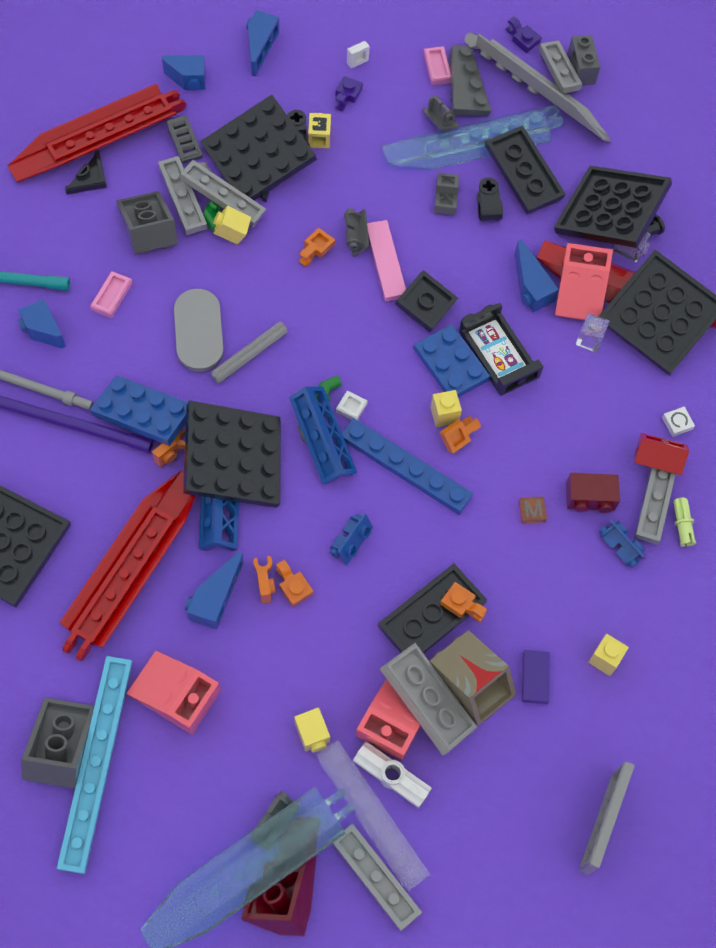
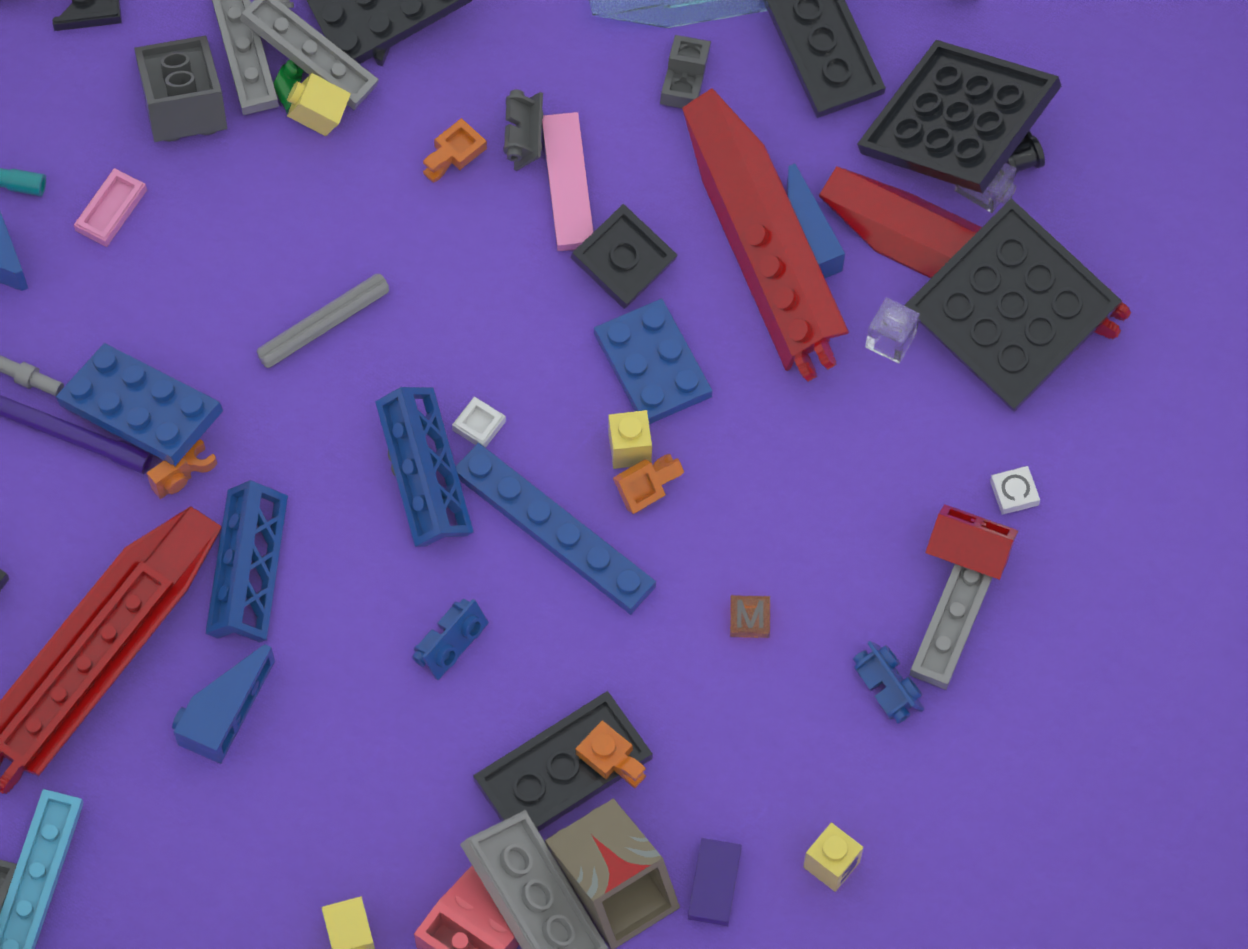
camera: 10 degrees right, 0 degrees up
(175, 691) = (143, 853): coral slope -> none
(198, 330) = (245, 277): light grey tile -> none
(232, 454) = (274, 487): black plate -> none
(266, 585) = (303, 700): orange plate -> none
(293, 586) = (349, 706): orange plate -> none
(329, 385) = (446, 385): green arm -> none
(489, 201) = (754, 93): black piece -> none
(499, 349) = (733, 346): panel -> none
(508, 282) = (764, 235): none -> red hinge
(583, 281) = (887, 243): coral slope -> none
(592, 492) = (851, 595): dark red brick -> none
(684, 522) = (994, 656): yellowish green axle -> none

